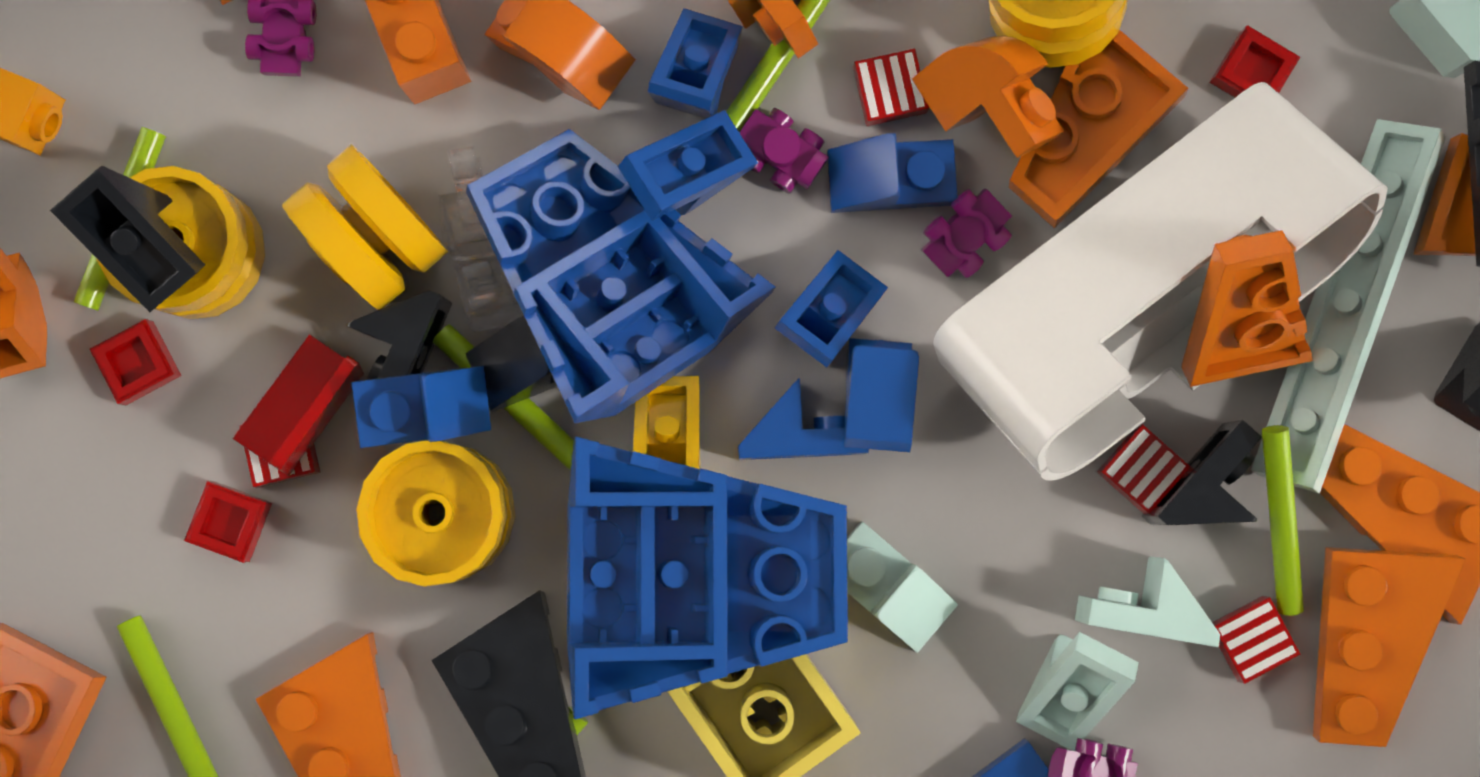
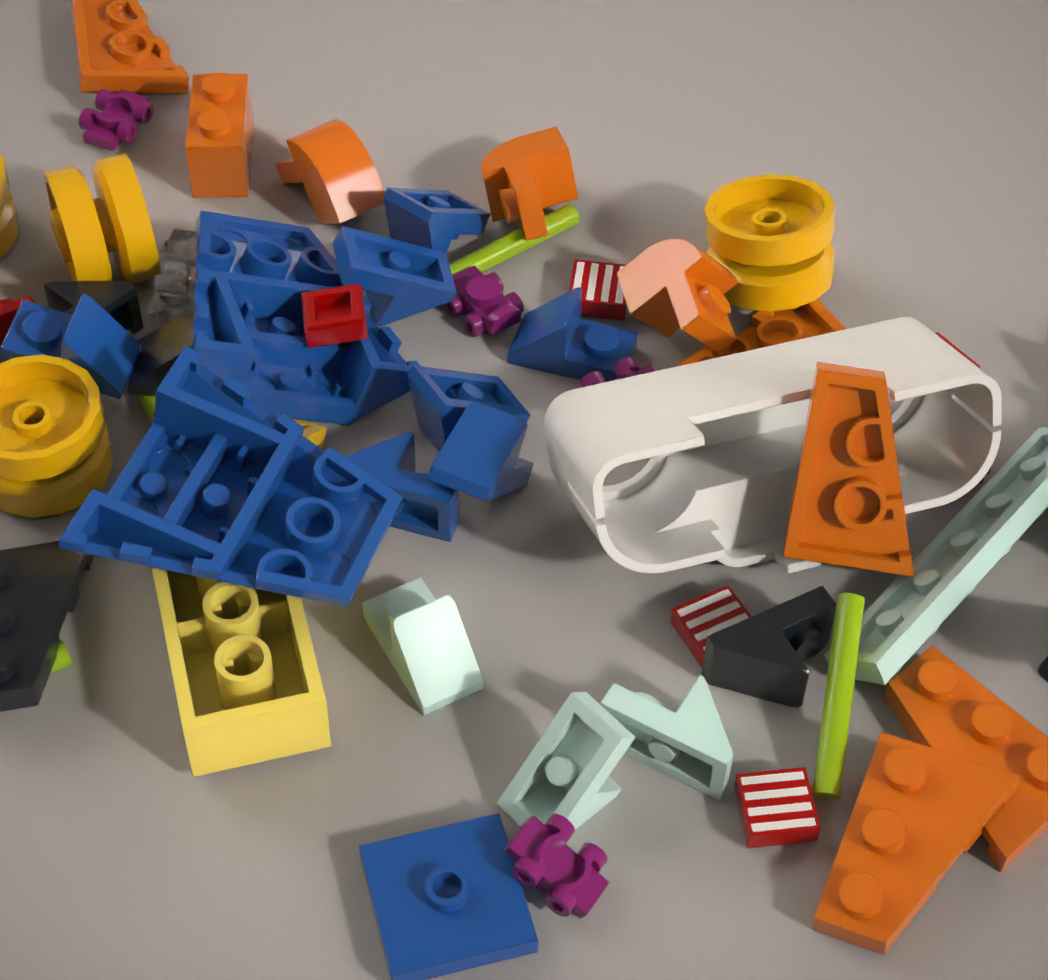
camera: 20 degrees right, 35 degrees down
(662, 263) = (334, 315): none -> red tile

